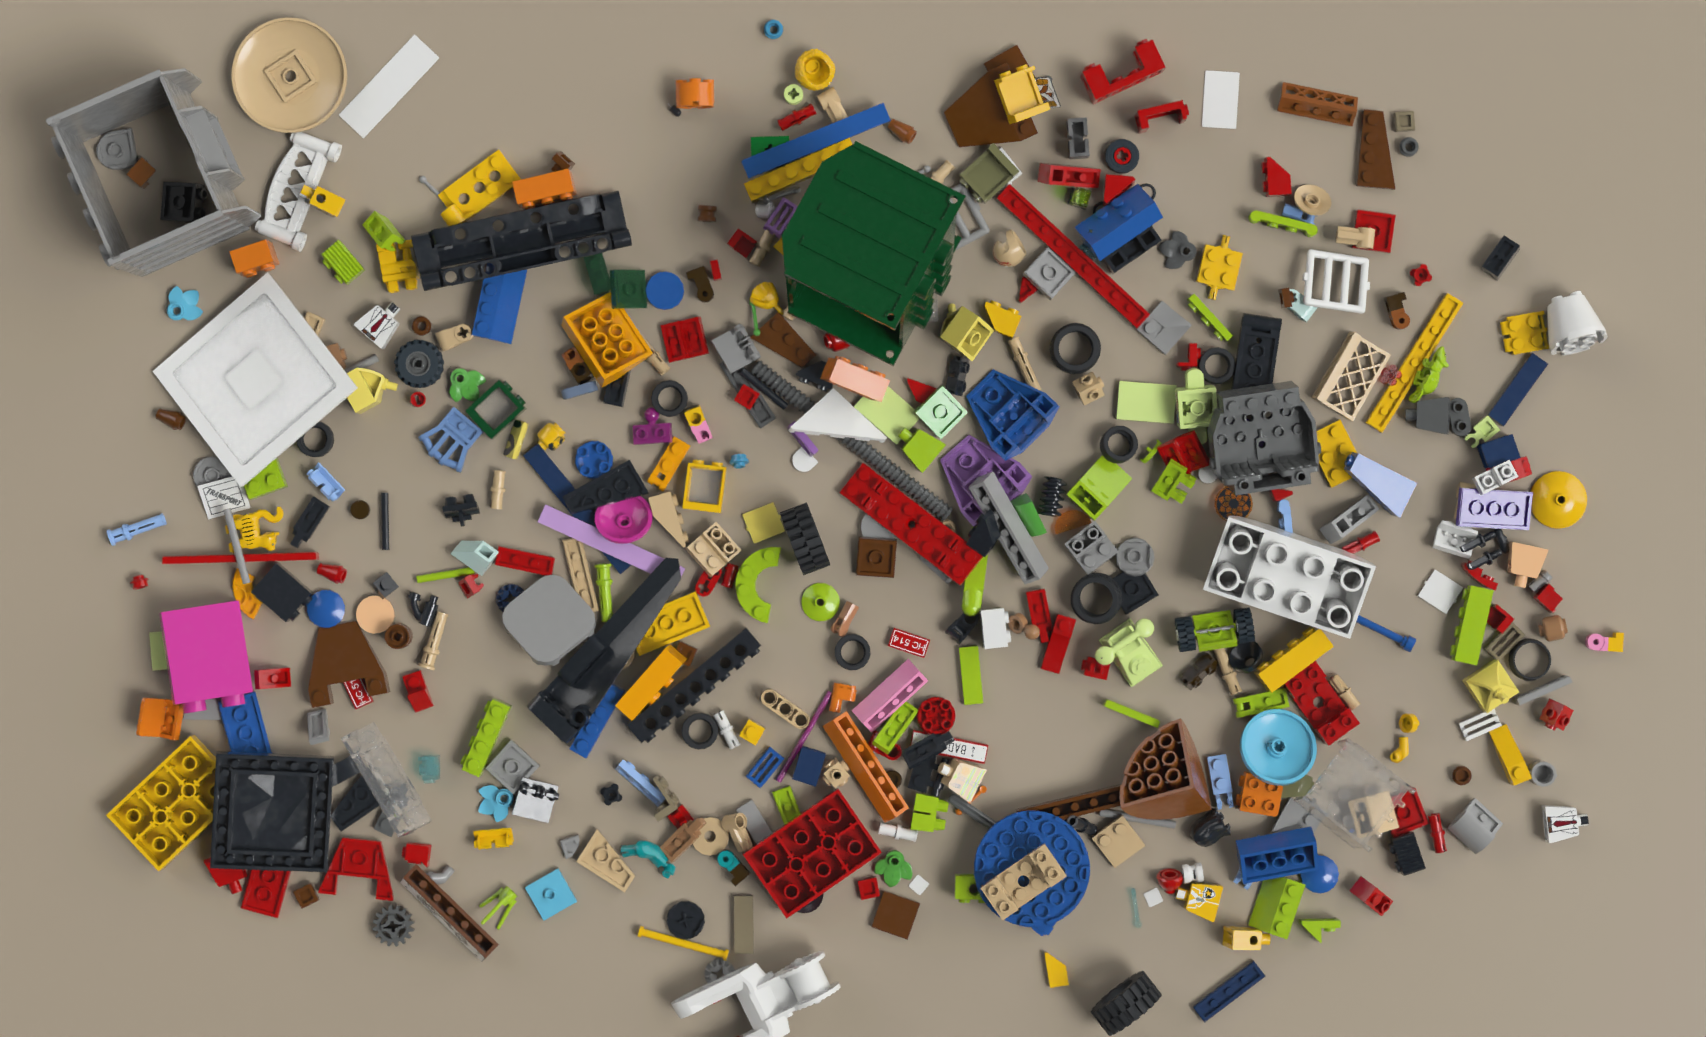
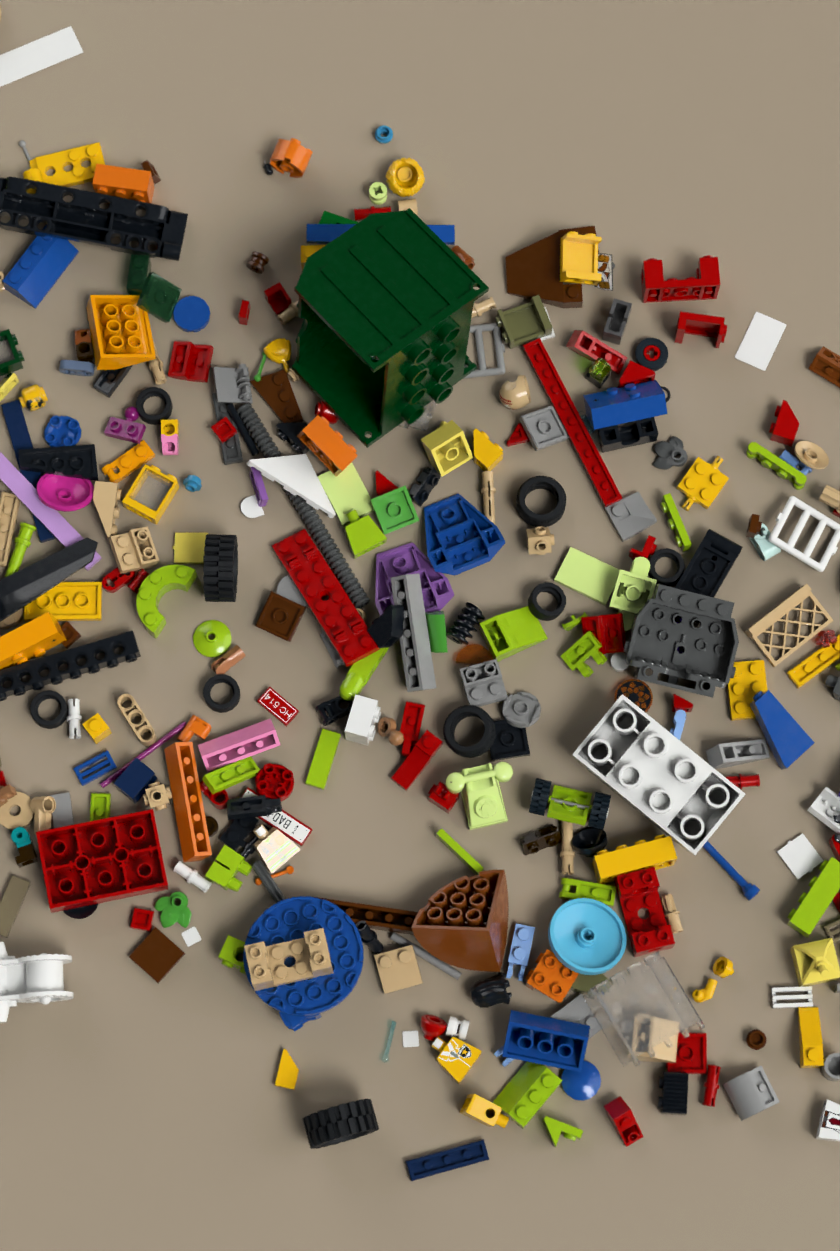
camera: 20 degrees right, 15 degrees down
(705, 292) = (228, 317): dark brown leg -> none

